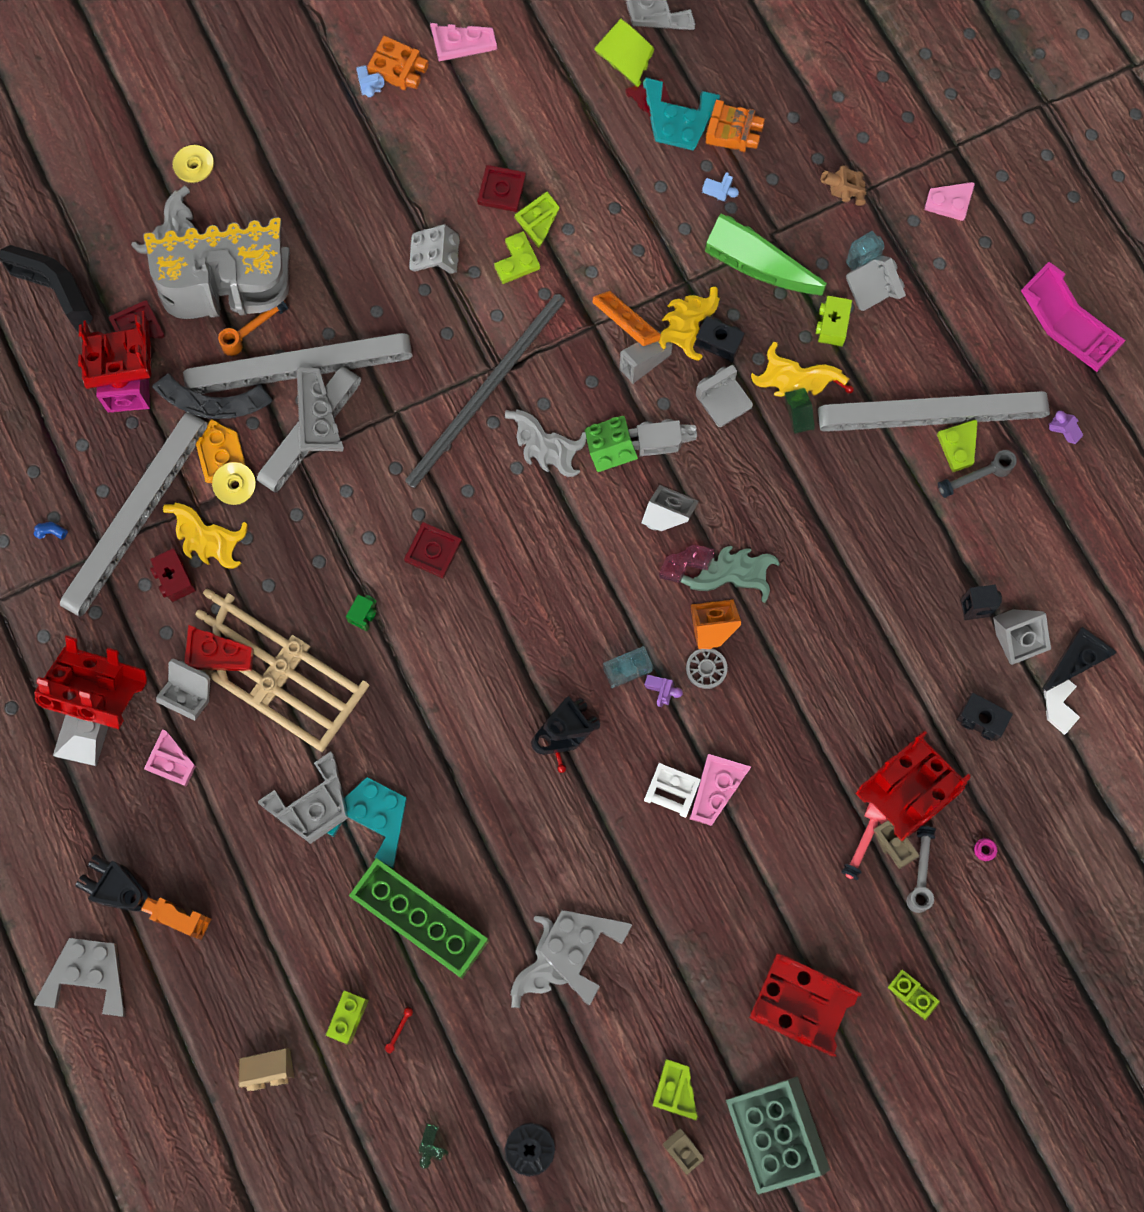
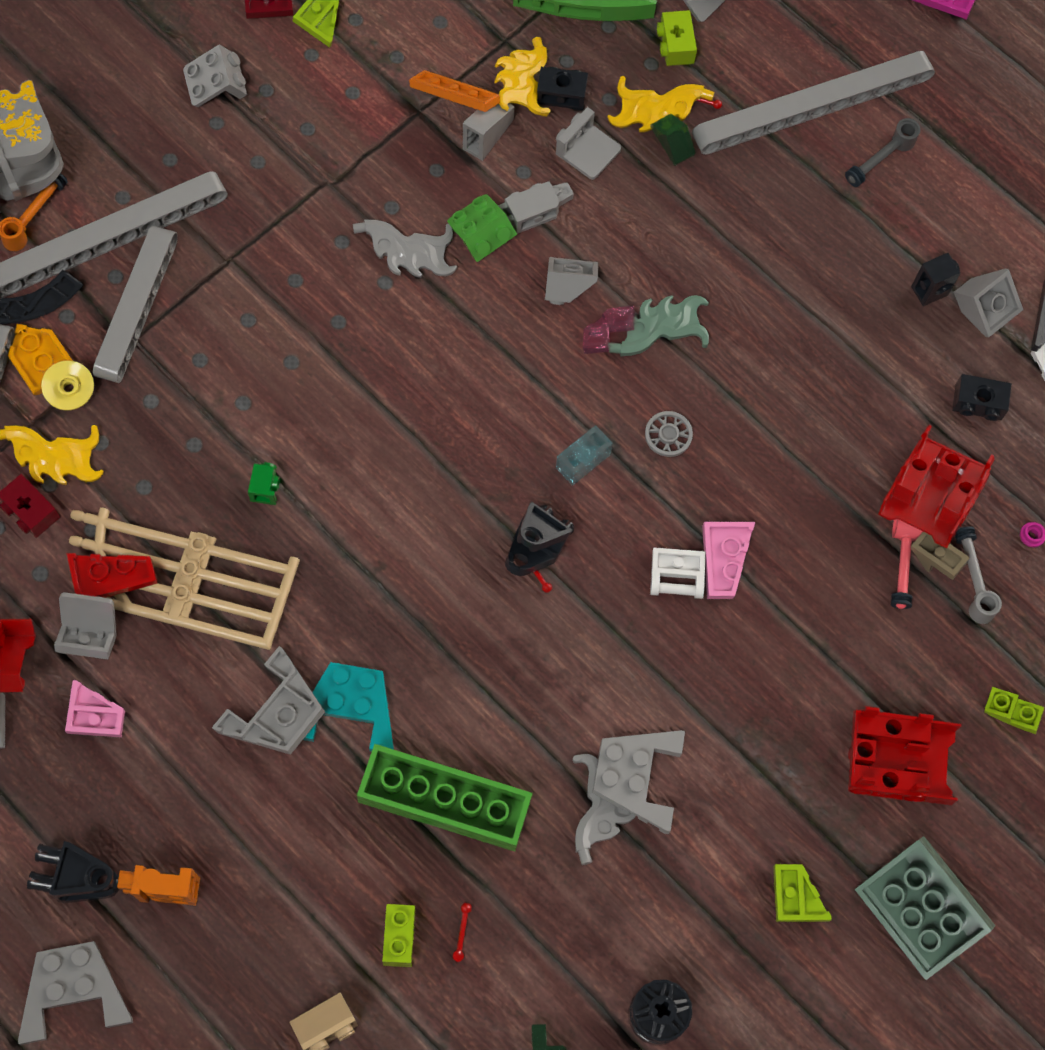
camera: 25 degrees left, 5 degrees down
(315, 415) = (139, 282): light grey wing -> none
(433, 550) = (321, 394): dark red plate -> none
(485, 391) = (321, 212): dark grey axle -> none
(521, 261) = (315, 65): lime plate -> none
(664, 687) = (629, 465): medium lavender piece -> none
(683, 1151) = (828, 959): dark tan slope -> none
(714, 622) = (661, 383): orange slope -> none
(959, 445) = (853, 129): lime wing -> none
(1067, 425) = (956, 78): medium lavender piece -> none

